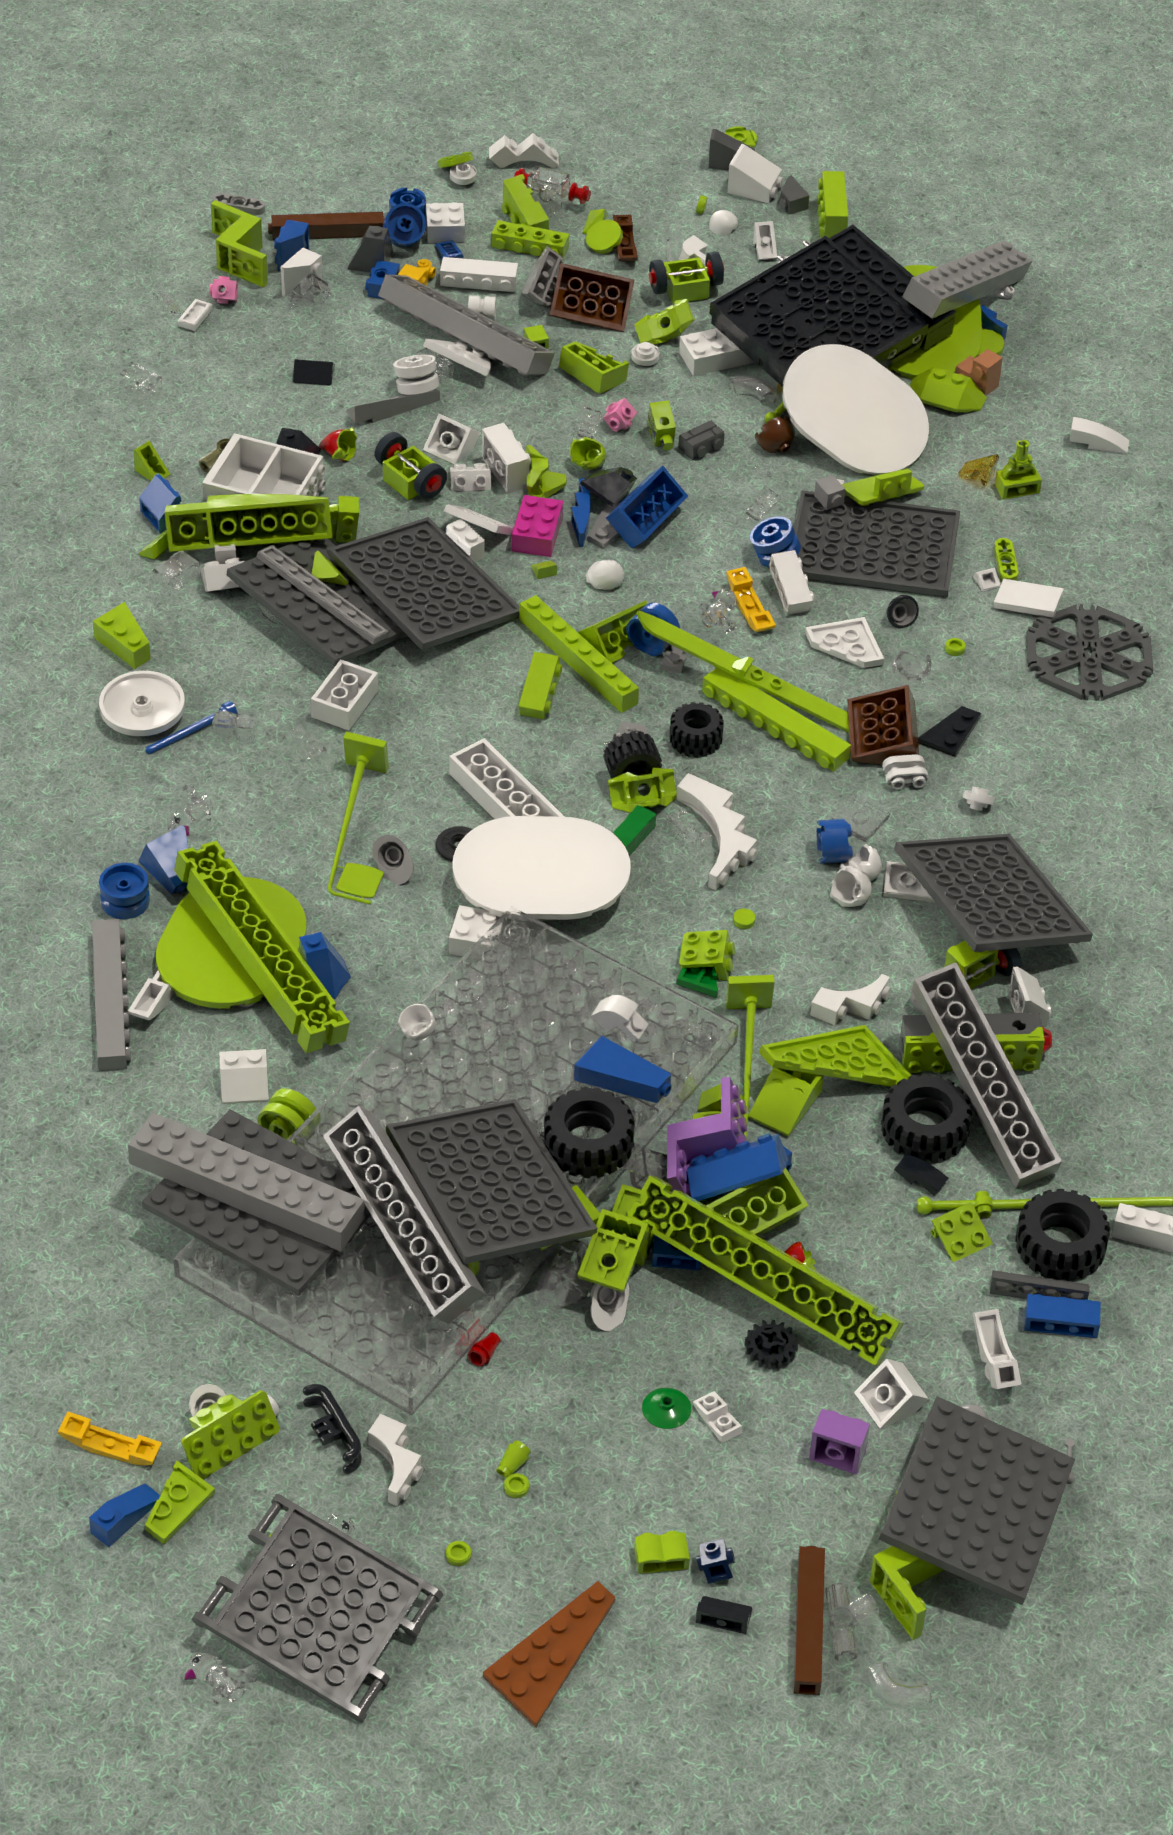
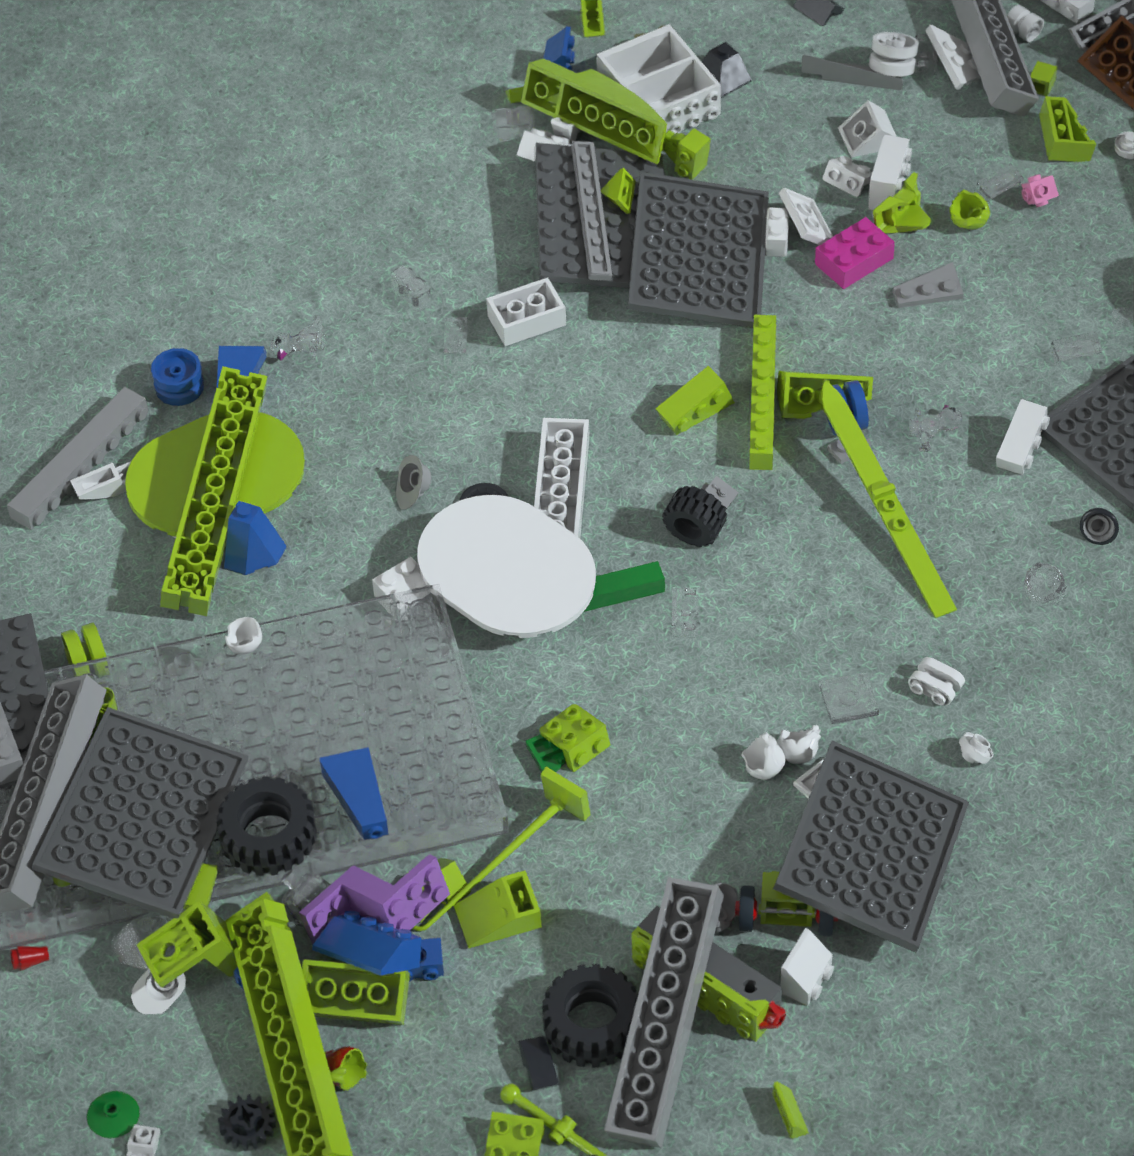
camera: 45 degrees right, 5 degrees up
(122, 635) = (411, 155): lime wedge -> none
(142, 703) = (361, 223): white dish -> none
(227, 706) = (423, 270): blue piece -> none
(244, 1076) = (100, 594): white slope -> none
(340, 443) = (764, 84): lime hat -> none
(358, 878) = (374, 481): lime piece -> none
(408, 468) = (795, 135): brick -> none
(544, 569) = (823, 297): lime slope -> none
(581, 514) = (907, 265): blue slope -> none
(605, 575) = (869, 333): white hair -> none
(610, 484) = (954, 250): black slope -> none
(620, 1013) = (408, 742): white brick -> none
(625, 793) = (701, 562): lime piece -> none
(647, 507) = (964, 289): blue brick -> none
(661, 433) = (1063, 227): lime torso -> none
(696, 729) = (783, 537): black tyre -> none
(701, 440) = (1092, 255): dark grey brick -> none
(728, 826) = (719, 632): white arch -> none
(744, 918) = (647, 725): lime tile -> none
(747, 600) = (971, 432): yellow slope -> none
(773, 537) = (1048, 386): blue wheel -> none
(777, 719) = (873, 561): lime brick -> none
(833, 841) = (792, 703): blue brick -> none
(841, 1054) = (582, 908): lime wing -> none
(847, 640) = (1020, 524): white plate -> none
(864, 1002) = (631, 856): white arch -> none
(883, 725) = (962, 626): reddish brown slope -> none
(951, 732) = (1026, 670): black wing -> none
(955, 646) = (1120, 591): lime tile -> none
(1109, 1094) = (789, 1110): none -> lime slope

